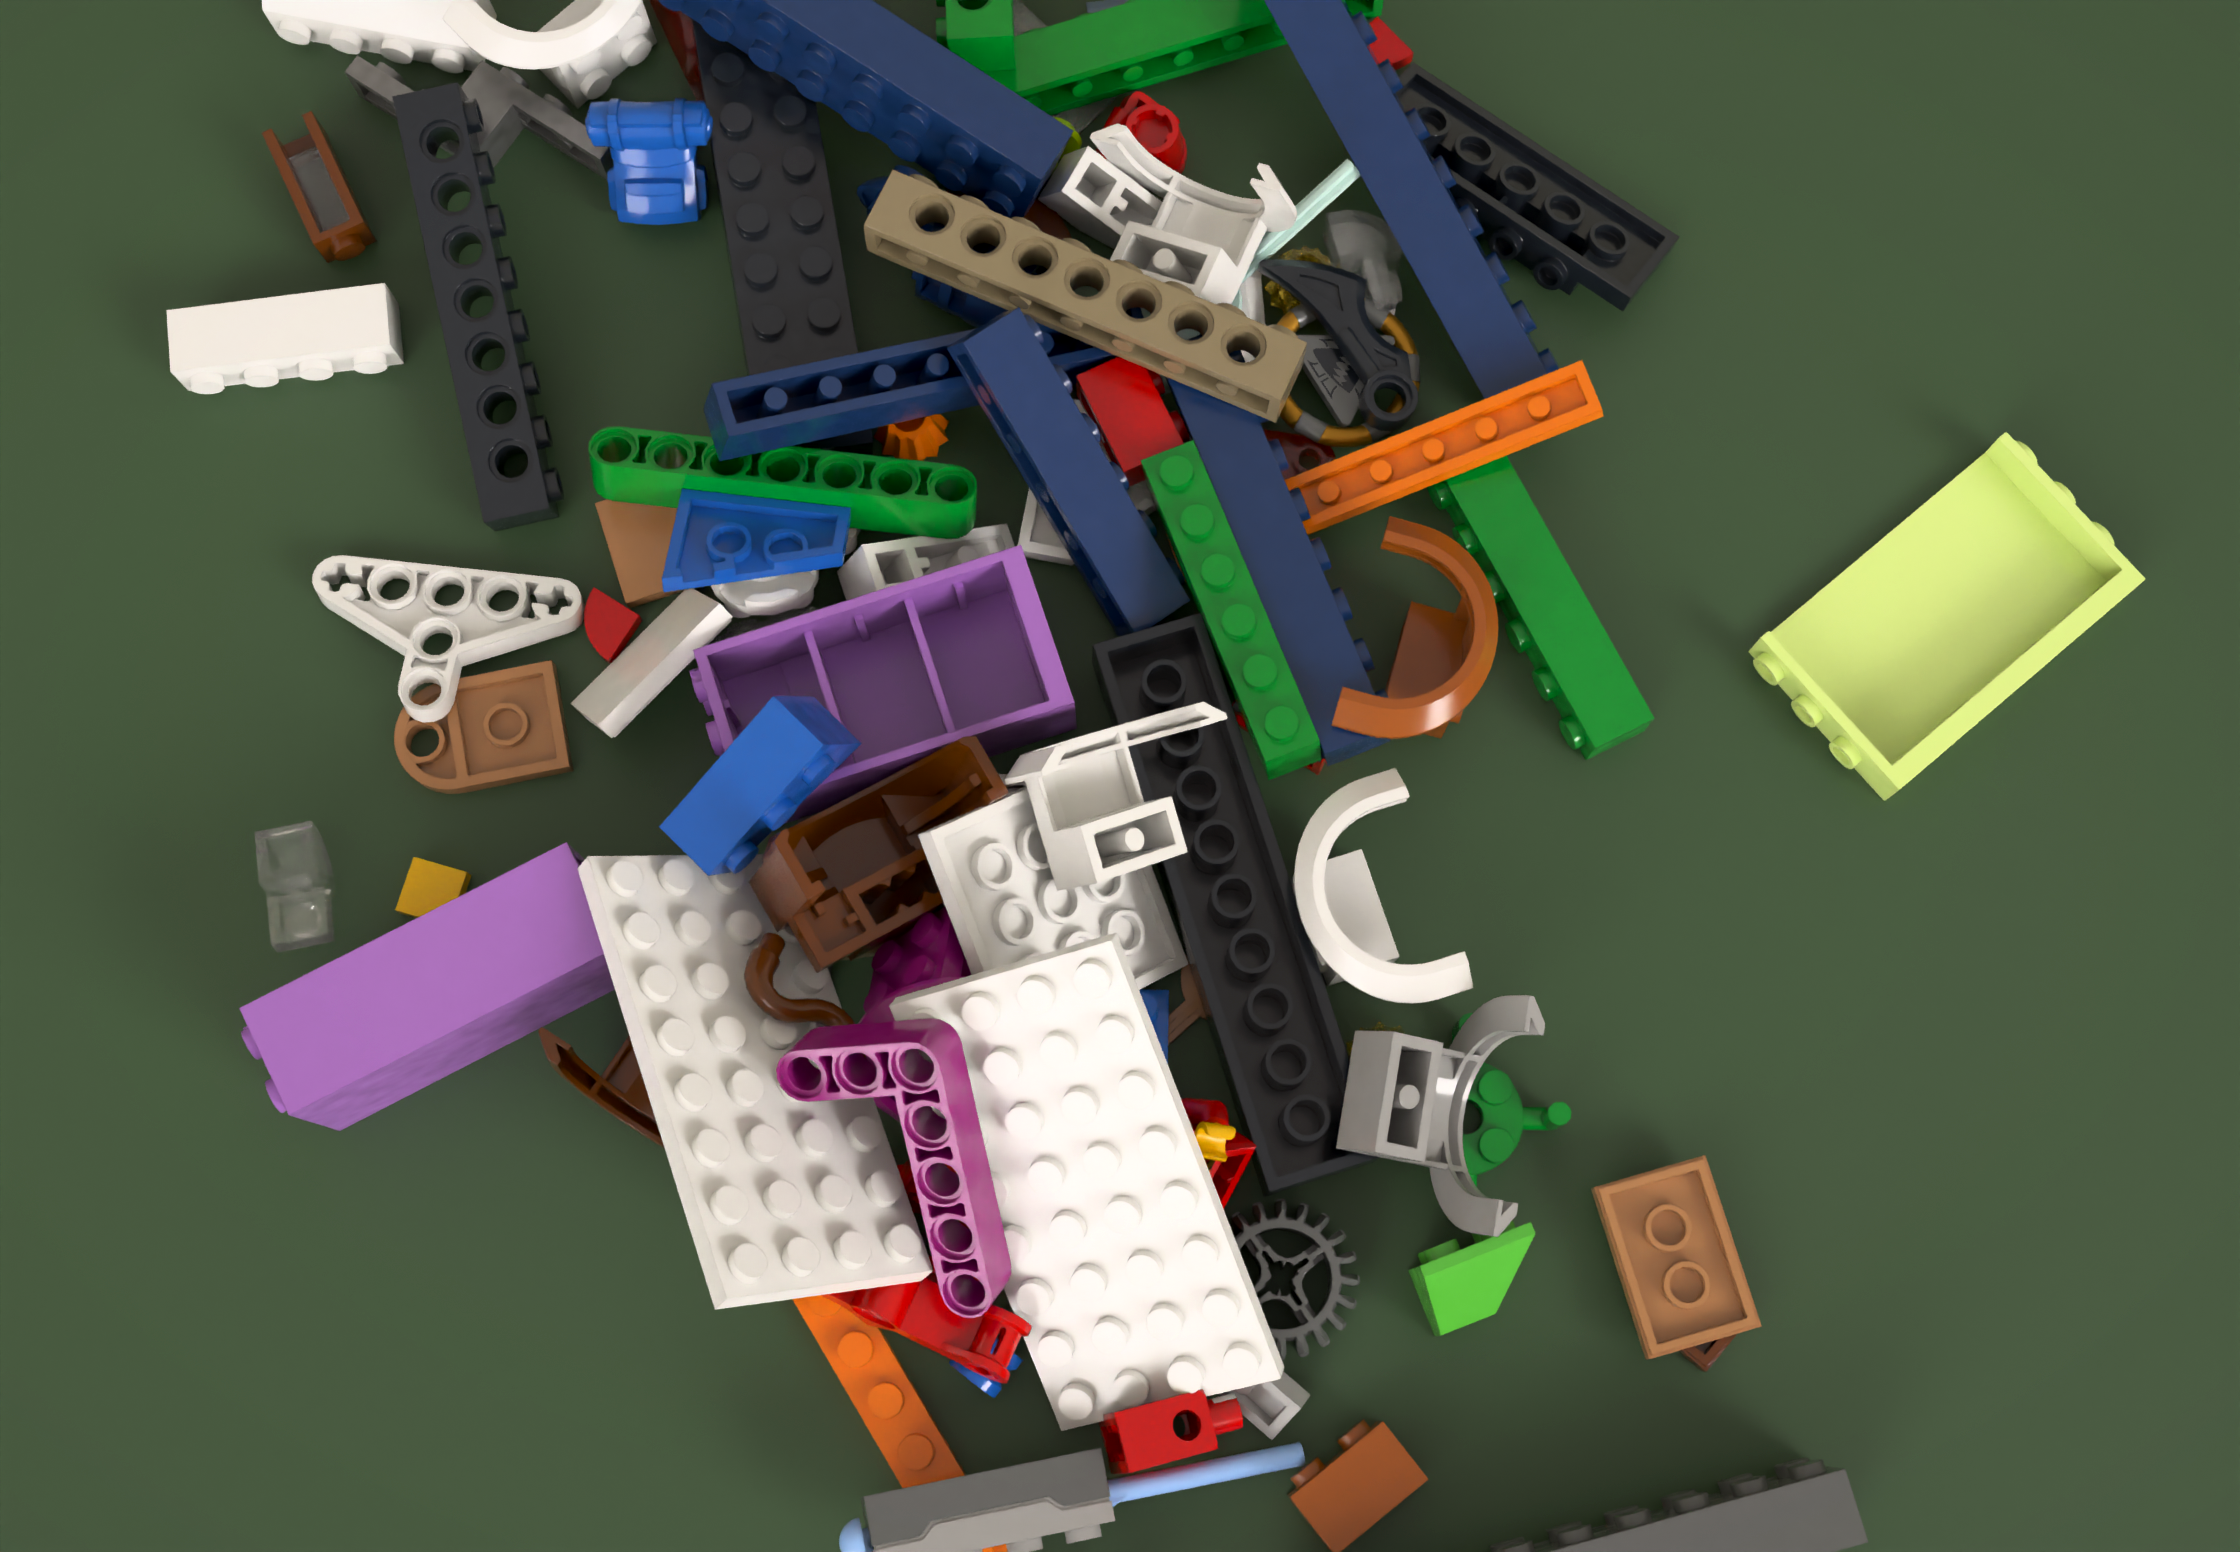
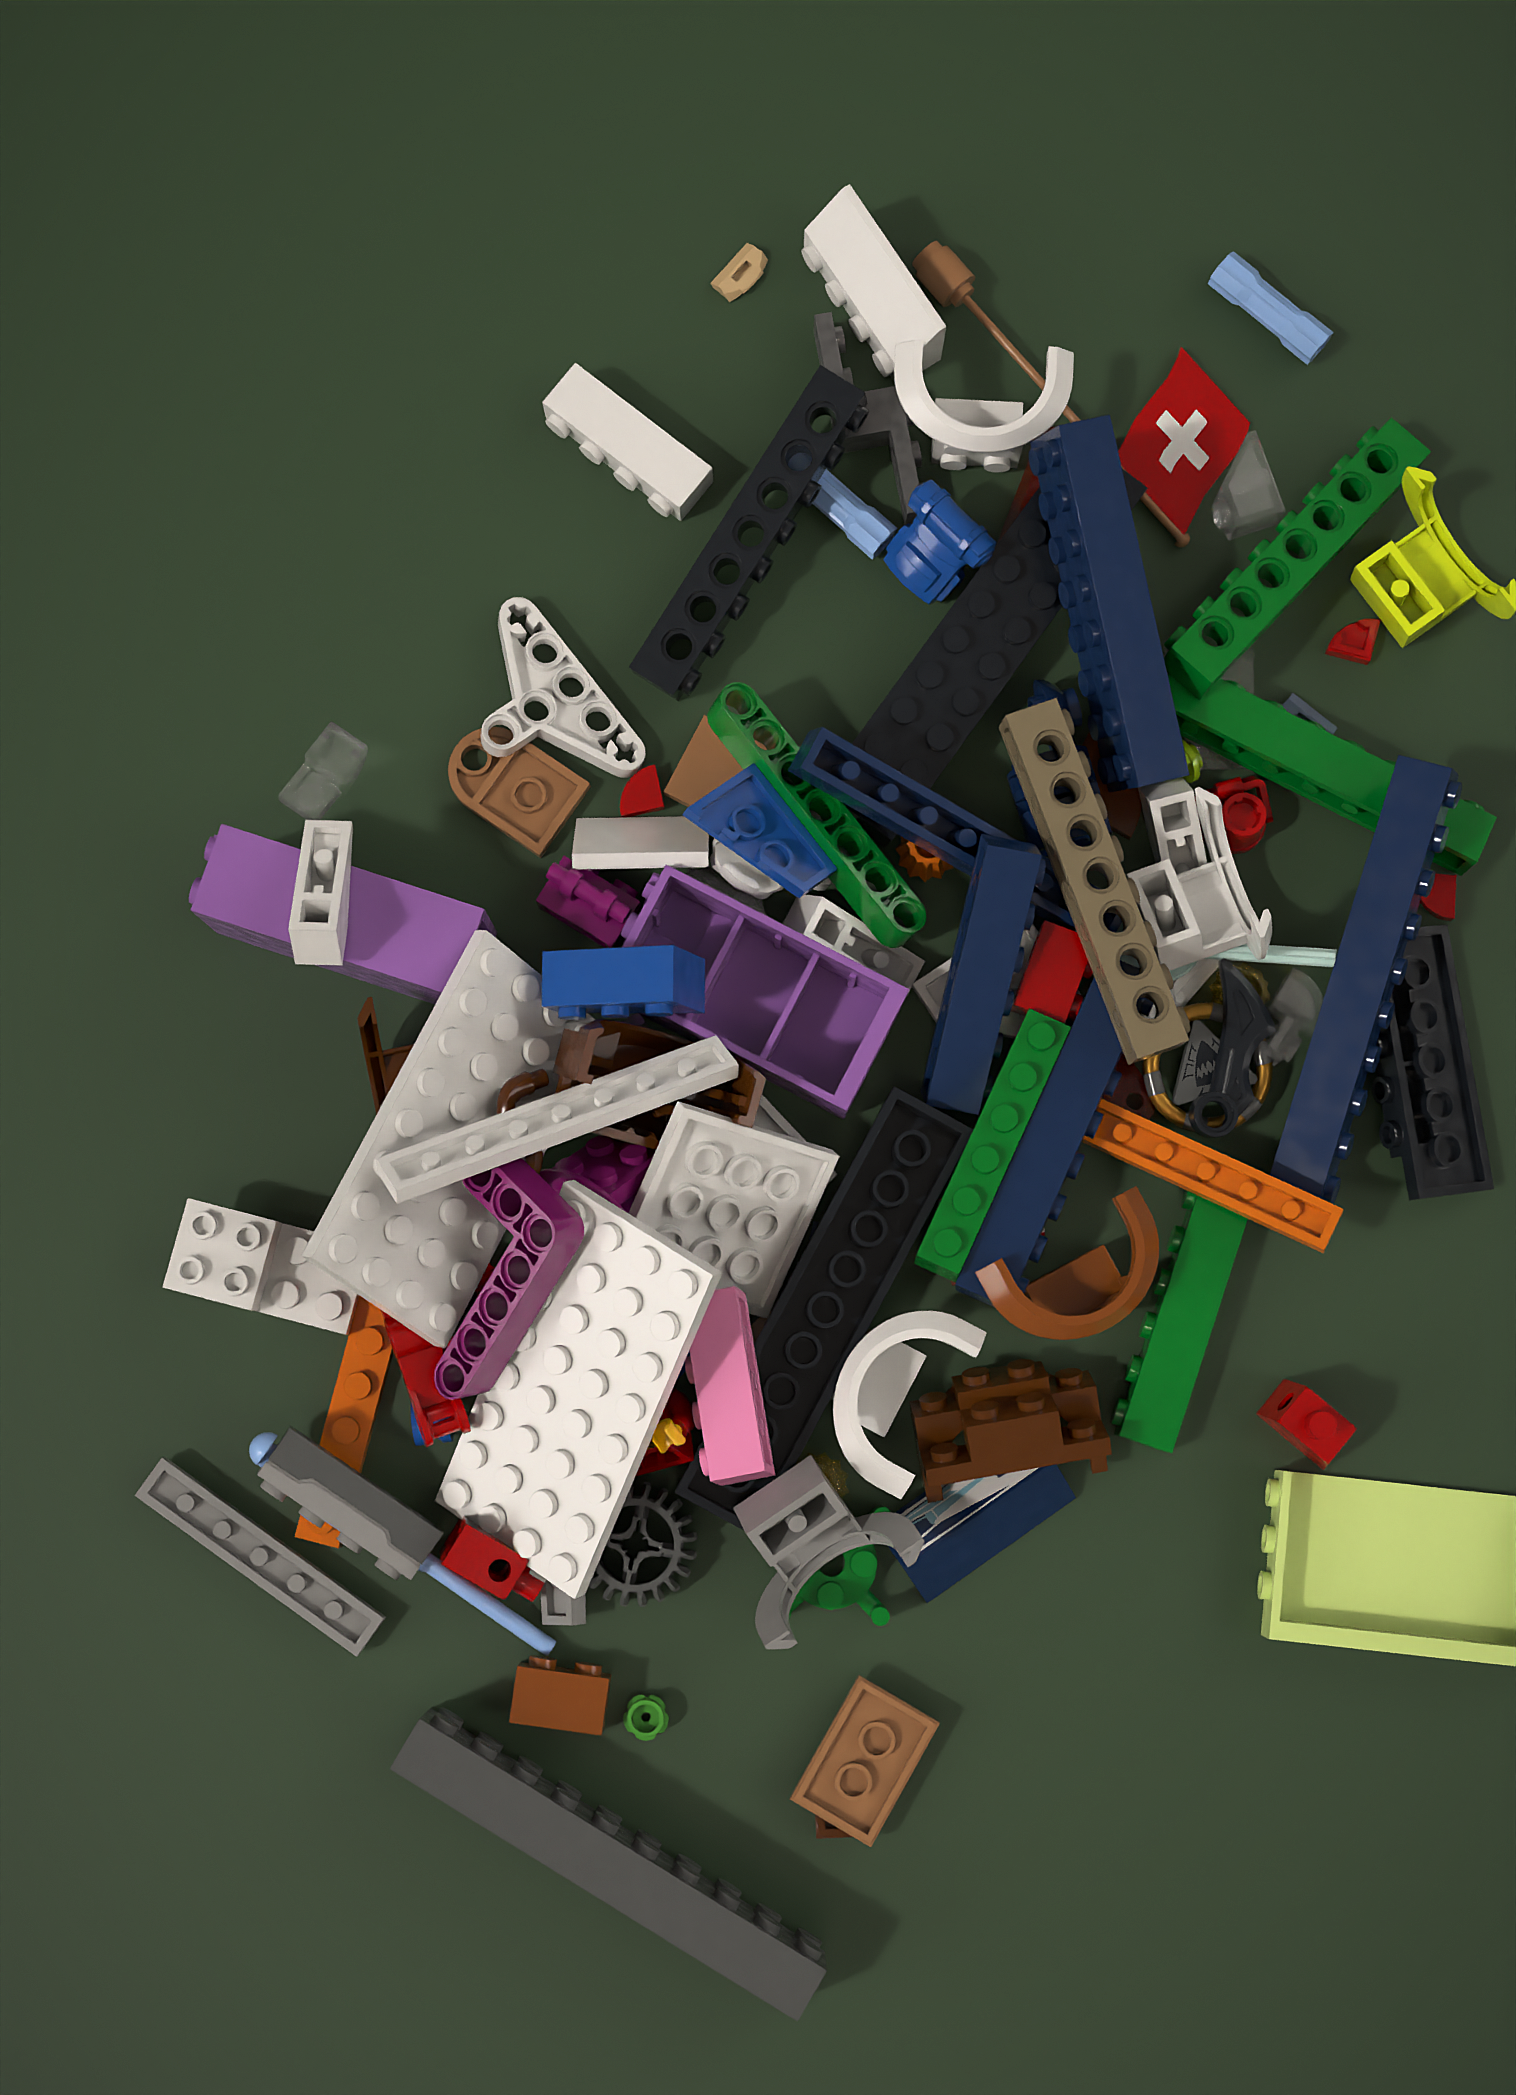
camera: 45 degrees right, 5 degrees up
(242, 105) = (740, 272): none -> tan piece
(321, 192) = (732, 373): reddish brown window -> none
(400, 973) = (322, 893): none -> white slope
(429, 887) = (396, 850): yellow tile -> none
(567, 210) = (860, 522): none -> light blue axle
(653, 762) = (588, 902): none -> magenta brick
(686, 1384) = (255, 1268): none -> white piece
(822, 961) = (555, 1119): none -> white plate
(1093, 802) = (795, 1180): white piece -> none
(1232, 1054) = (729, 1393): none -> bright pink brick
(1463, 1420) = (646, 1729): none -> bright green plate
(1469, 1282) = (736, 1653): slope -> none
(1494, 832) = (1007, 1424): none -> reddish brown piece
(1545, 934) = (978, 1522): none -> dark blue slope
(1741, 576) = (1306, 1422): none -> red torso

